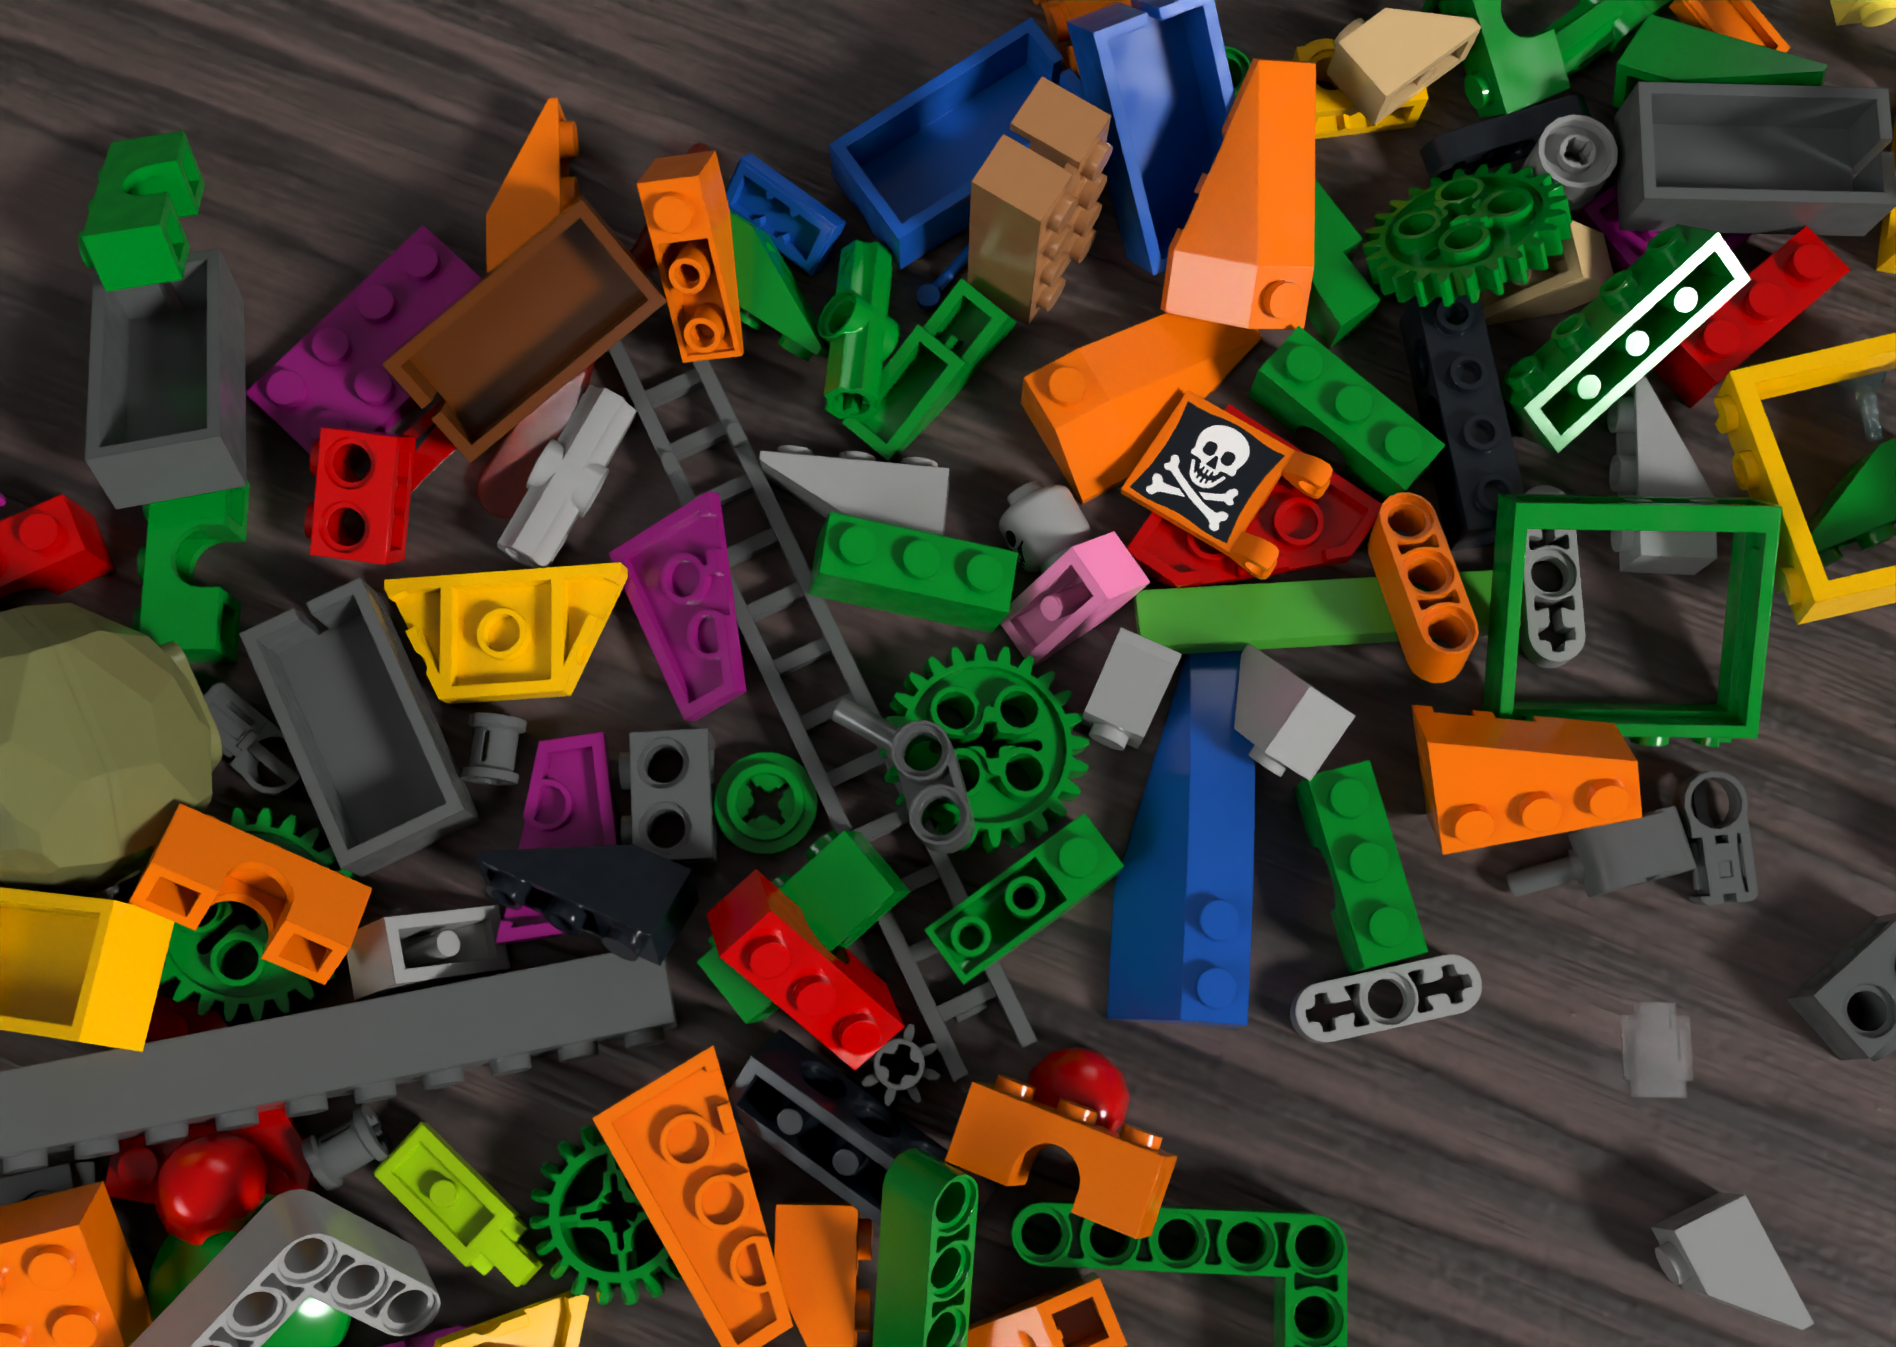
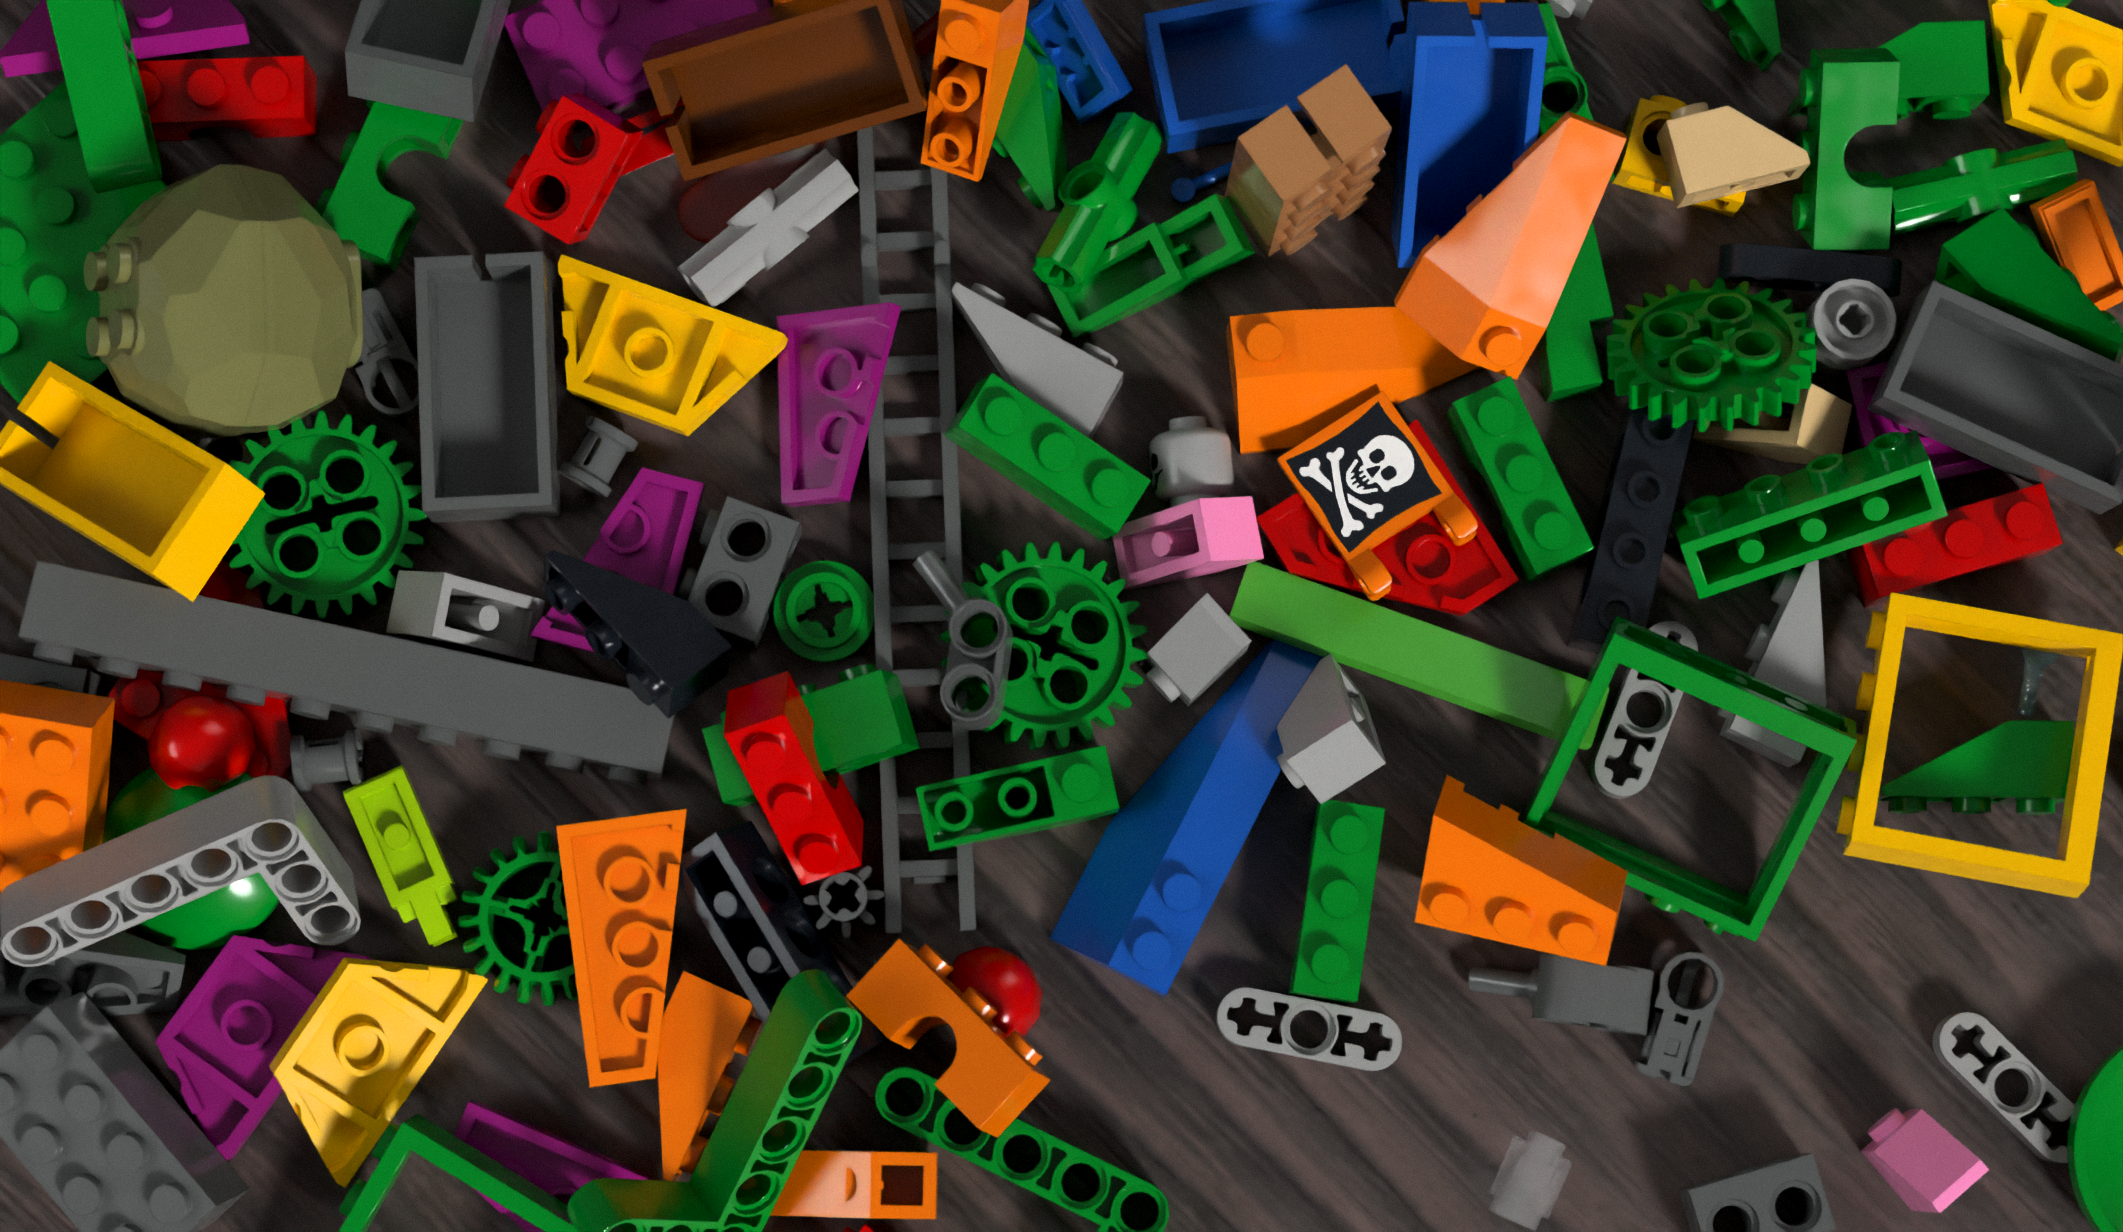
camera: 20 degrees right, 5 degrees up
(306, 906) = (380, 534): orange arch -> none
(1416, 613) = (1526, 647): orange beam -> none

